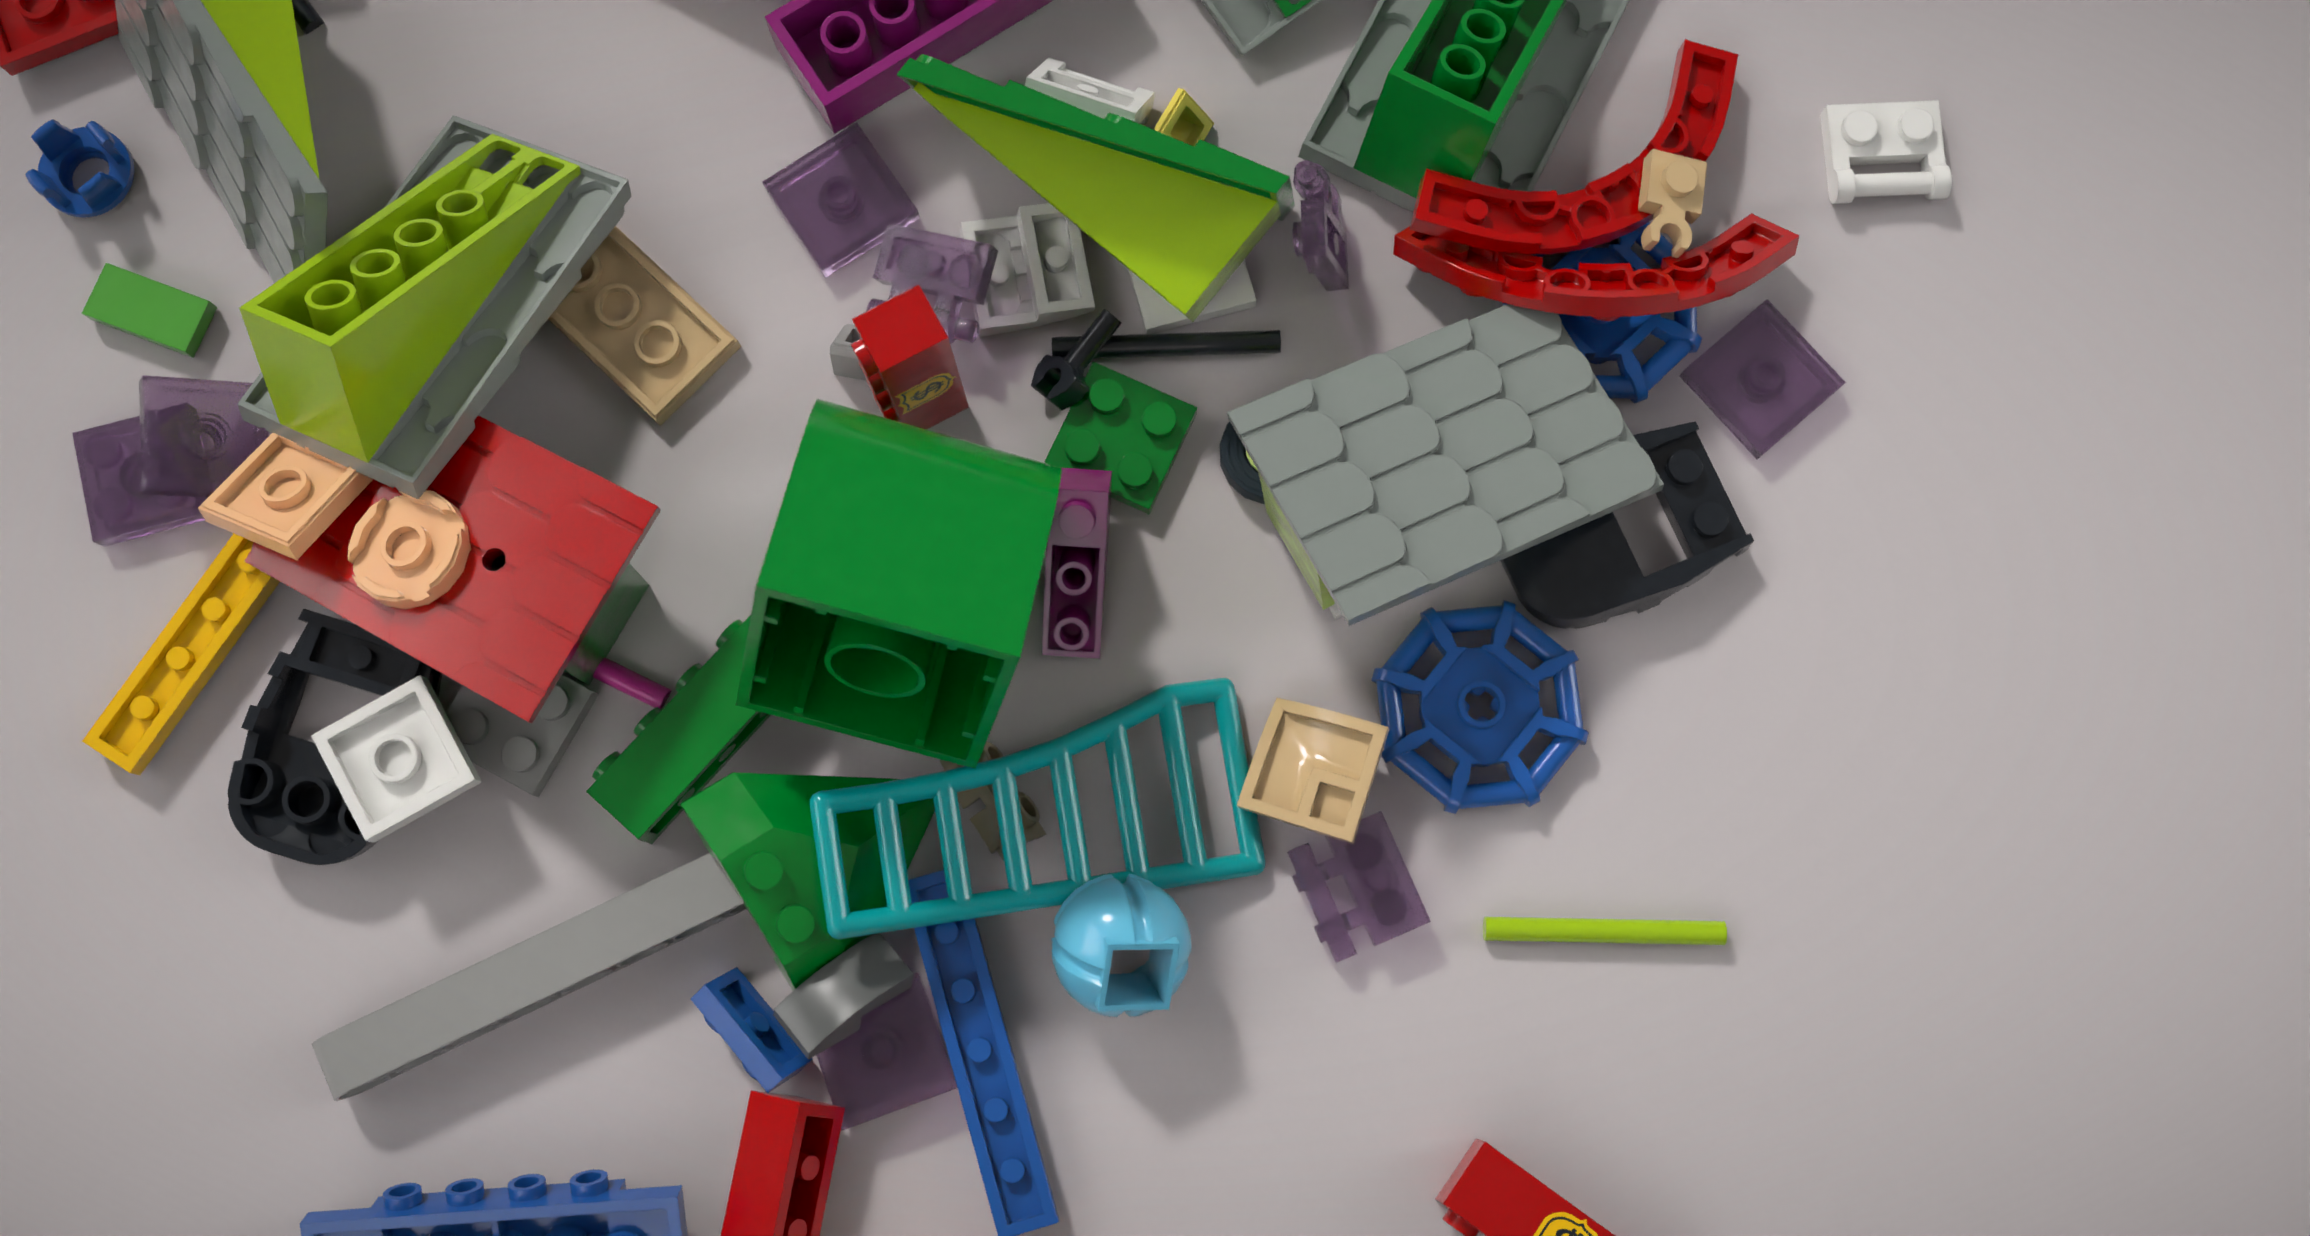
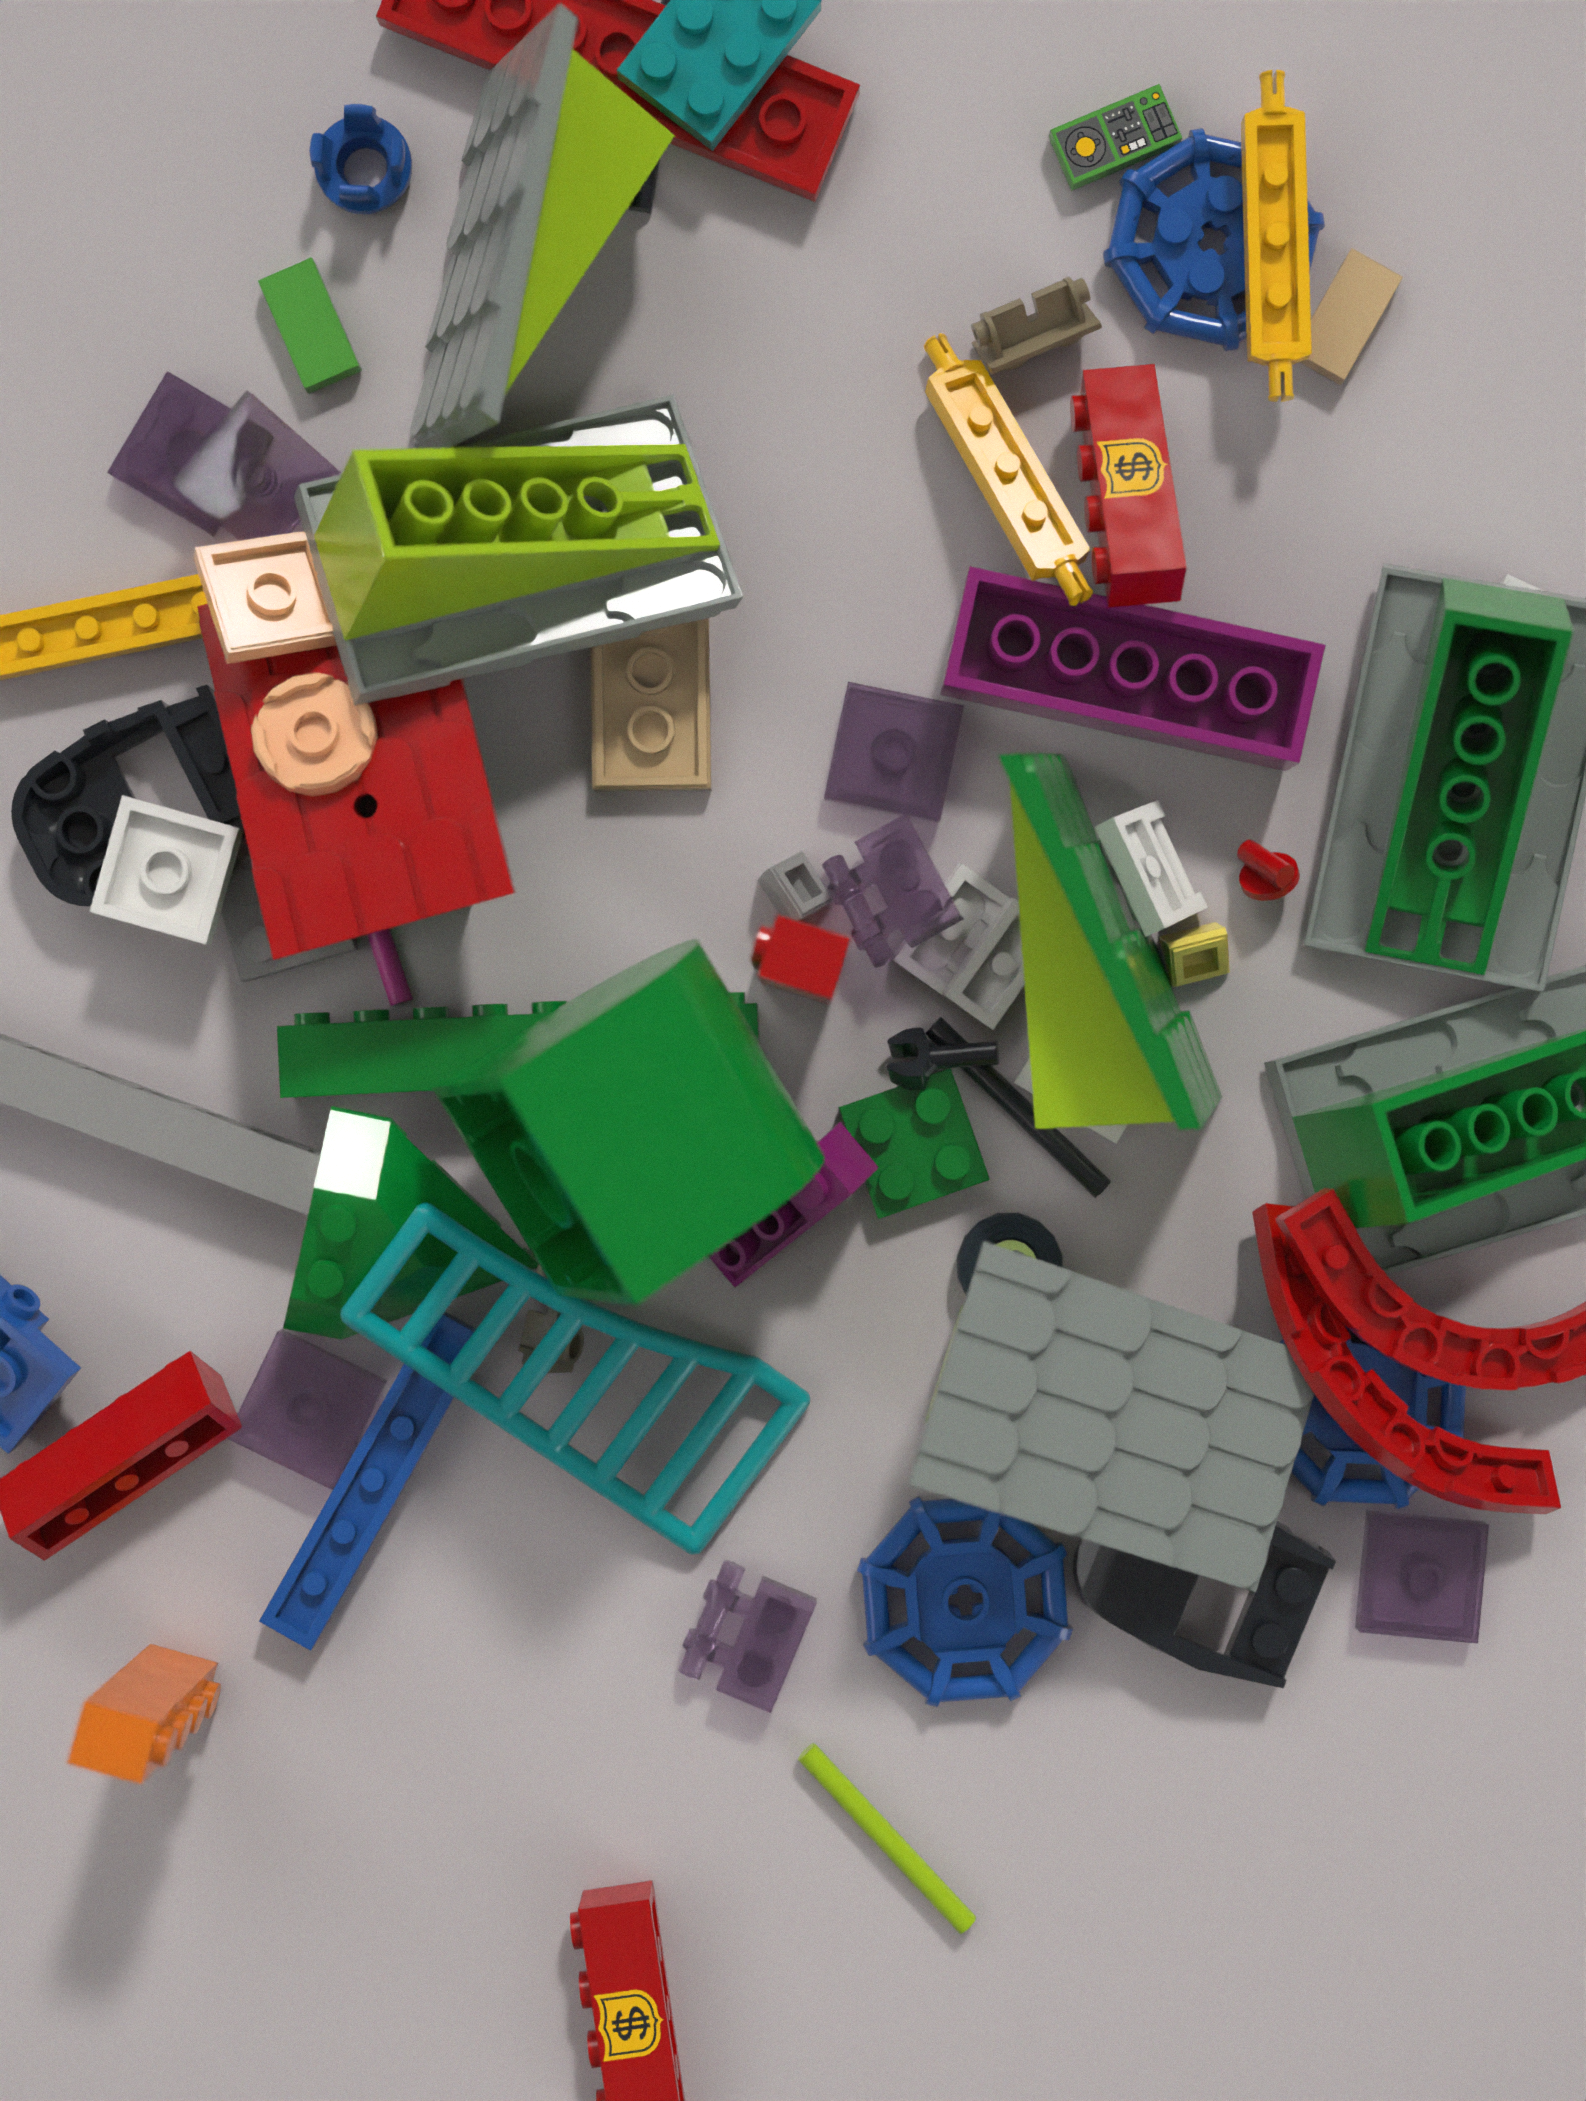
camera: 50 degrees right, 10 degrees up
(750, 1029) = (232, 1306): blue plate -> none
(837, 995) = (312, 1352): dark grey slope -> none
(1120, 917) = (536, 1518): medium azure piece -> none
(1169, 32) = (1266, 873): none -> red plate
(1314, 769) = (799, 1527): tan plate -> none
(1320, 231) = (1208, 1154): clear purple plate -> none
(1674, 195) = (1496, 1389): tan plate -> none

